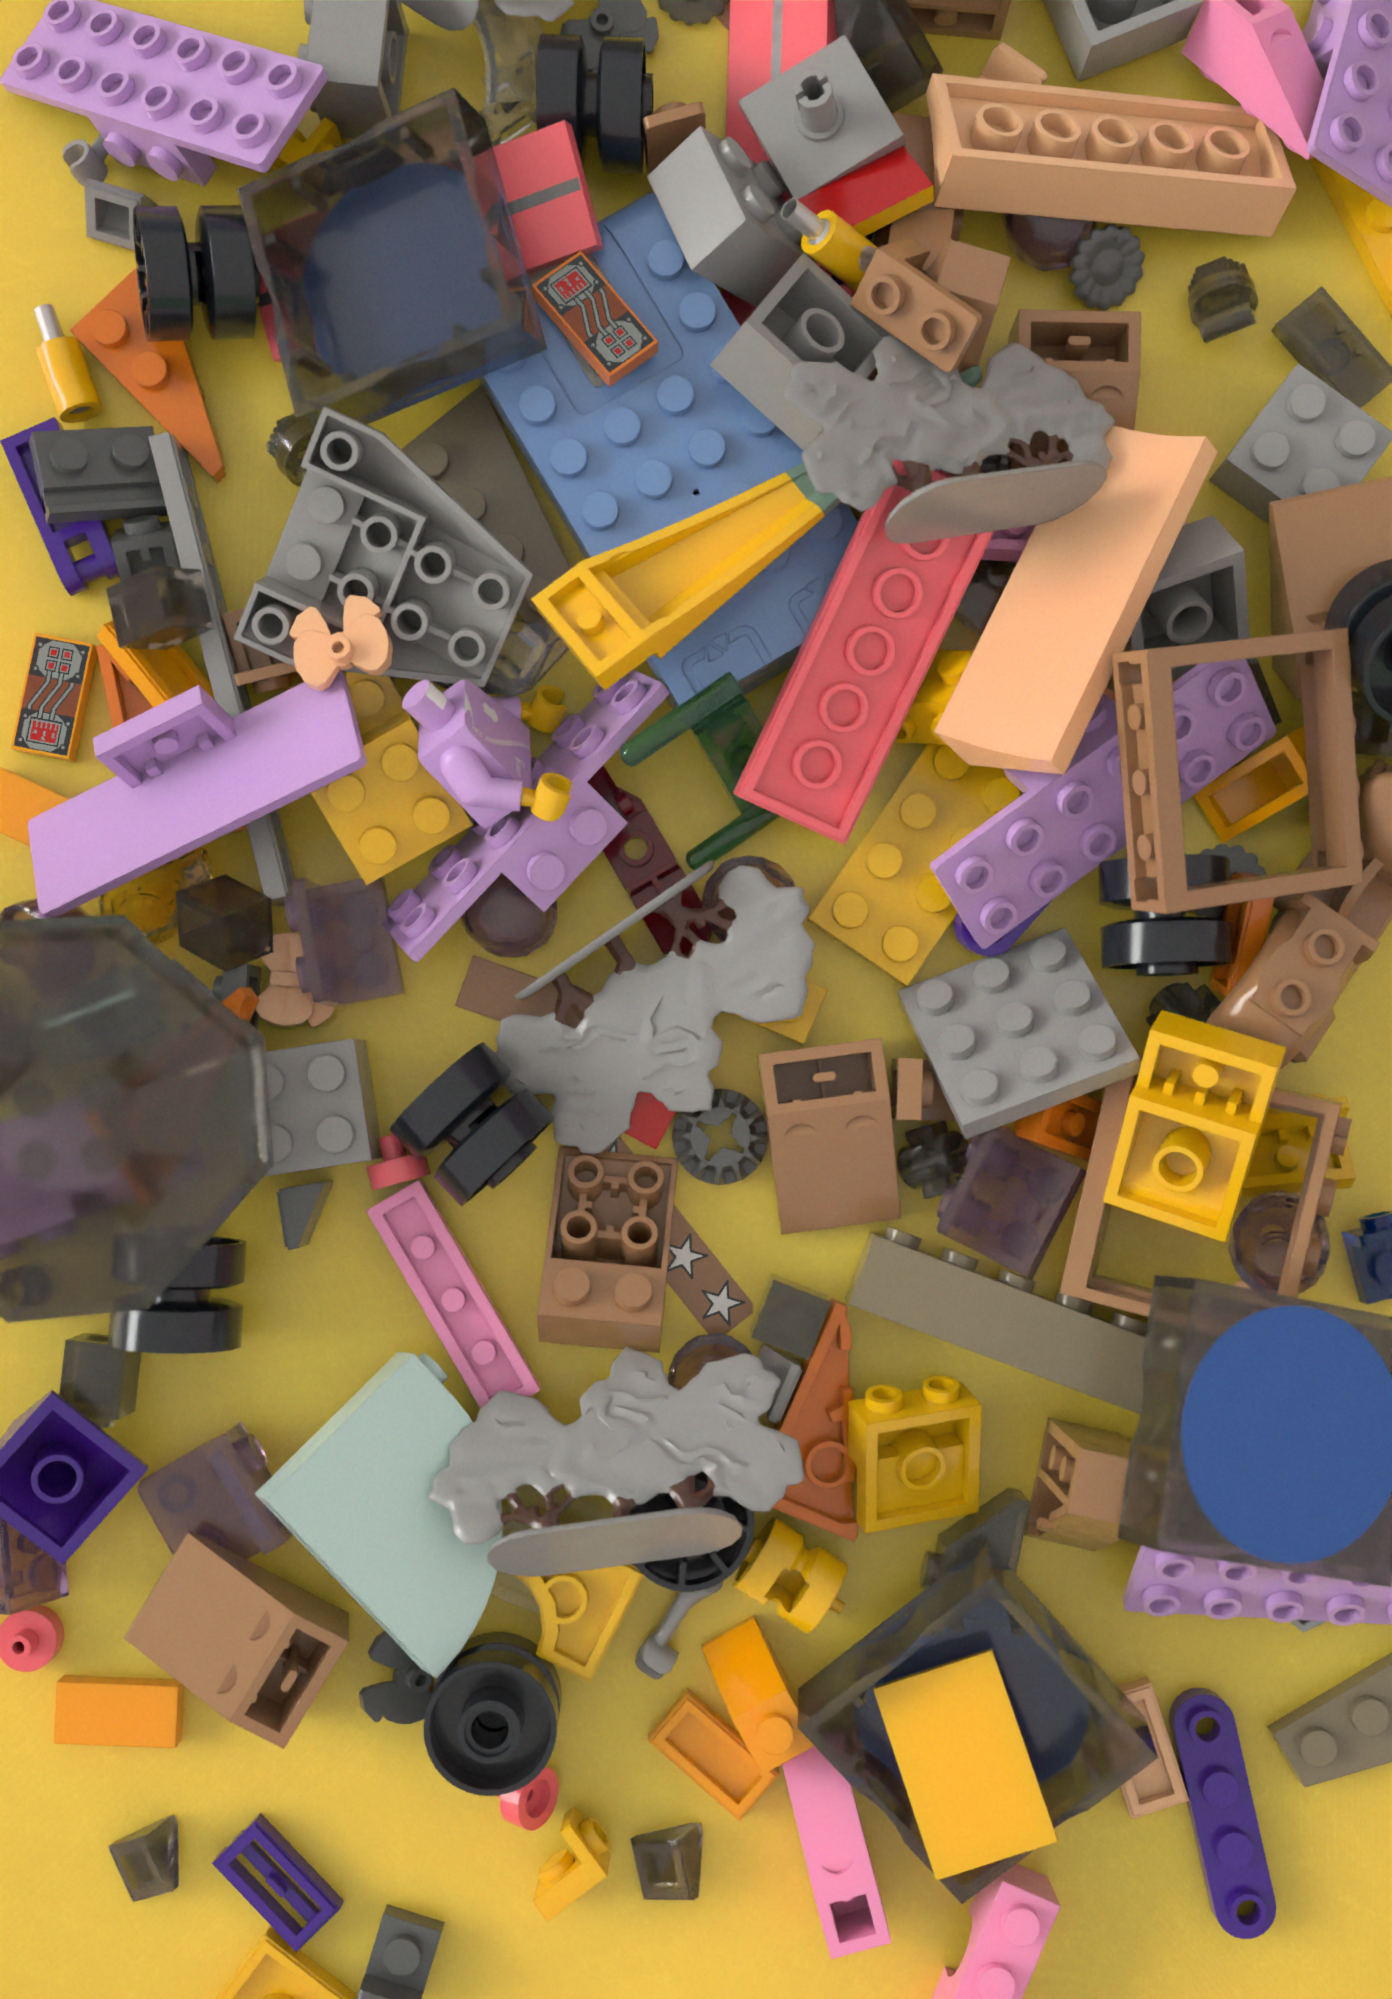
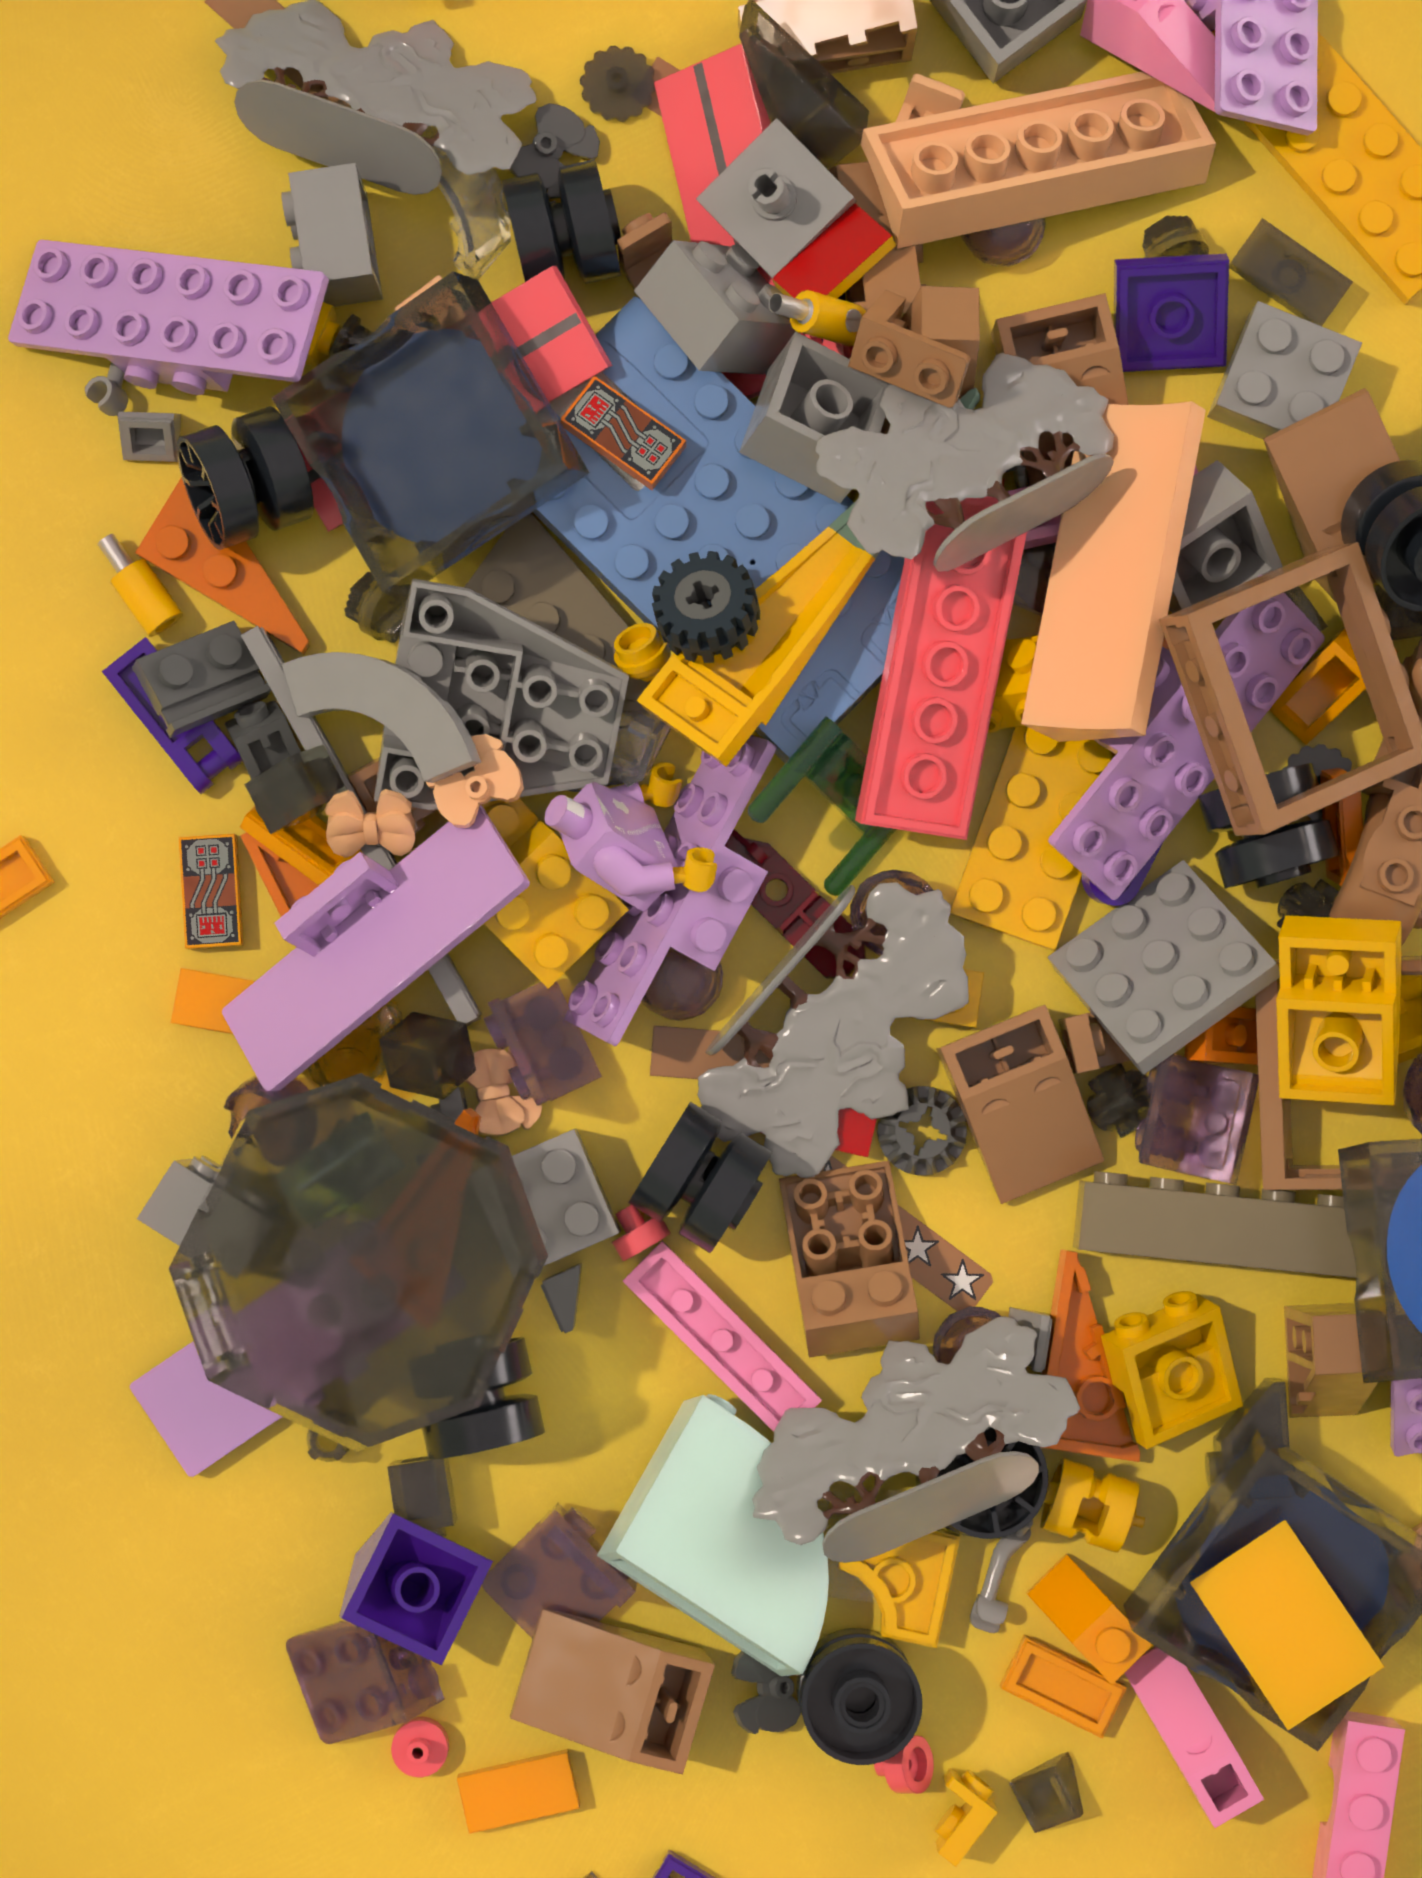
camera: 20 degrees left, 0 degrees up
(242, 669) = (351, 829): none -> light nougat piece
(279, 534) = (389, 696): none -> light grey tile
(553, 552) = (641, 651): none -> yellow plate
(630, 517) = (702, 628): none -> black wheel
(790, 1316) = (1028, 1274): clear smoke brick -> none
(1106, 267) = (1063, 250): dark grey piece -> none
(1203, 356) = (1171, 311): none -> dark purple tile

